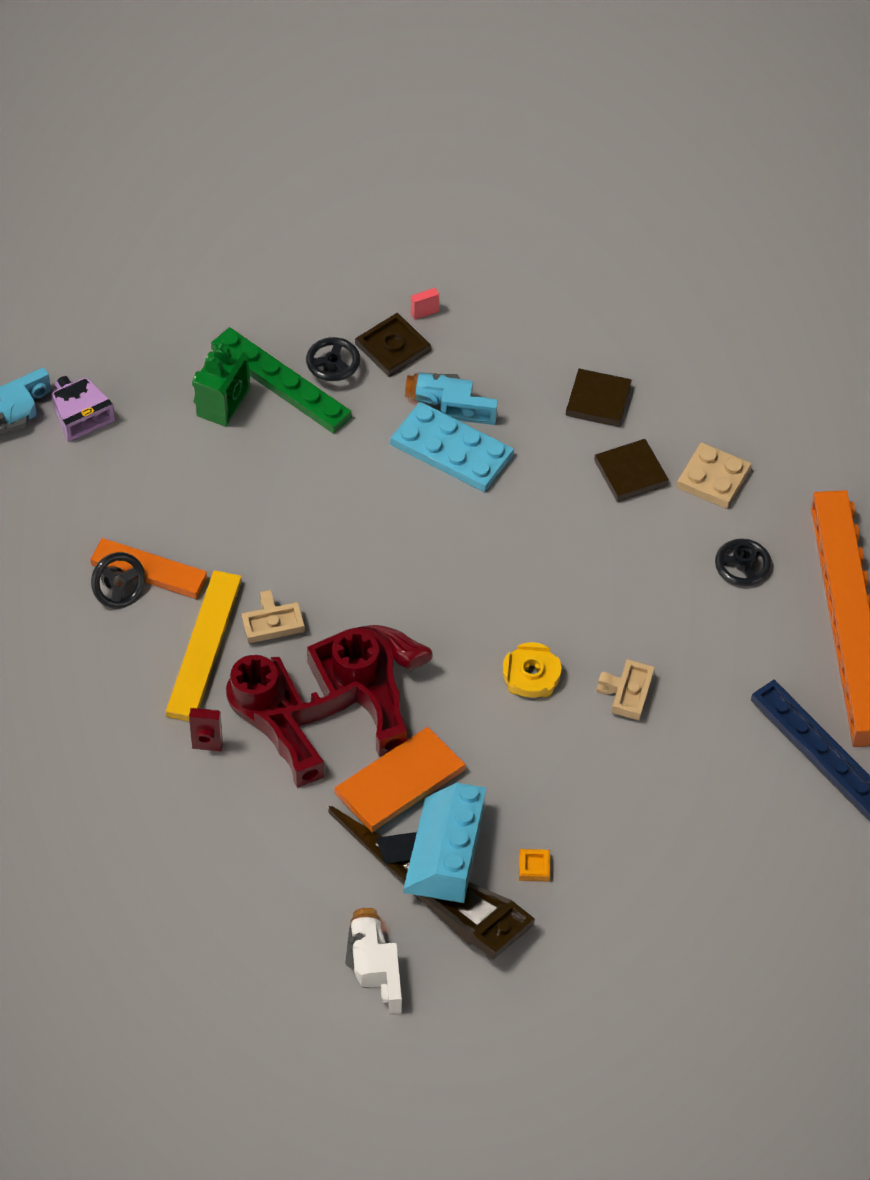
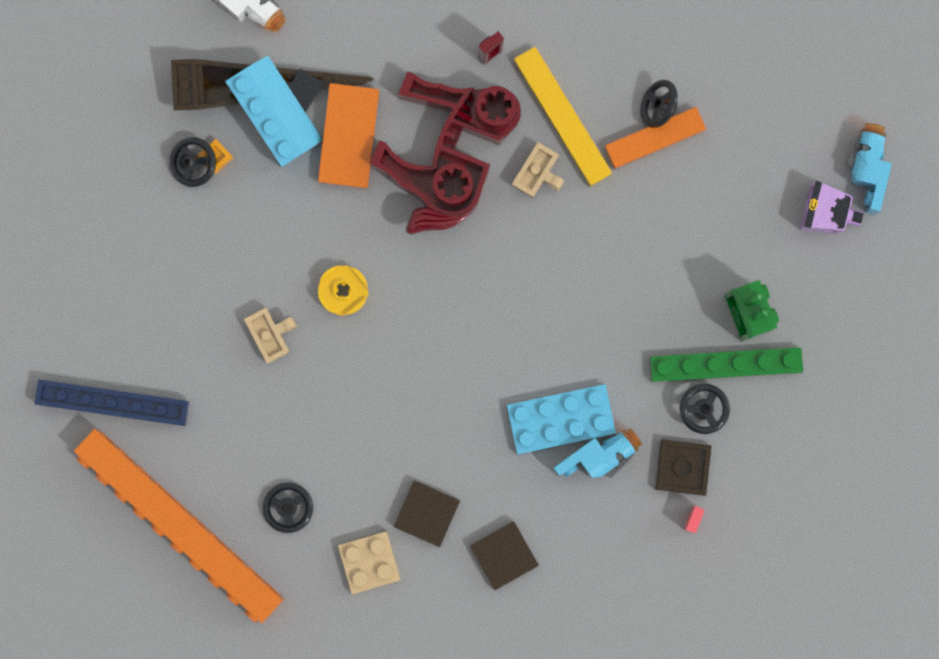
camera: 135 degrees right, 30 degrees up
(569, 861) = (182, 162): none -> black piece

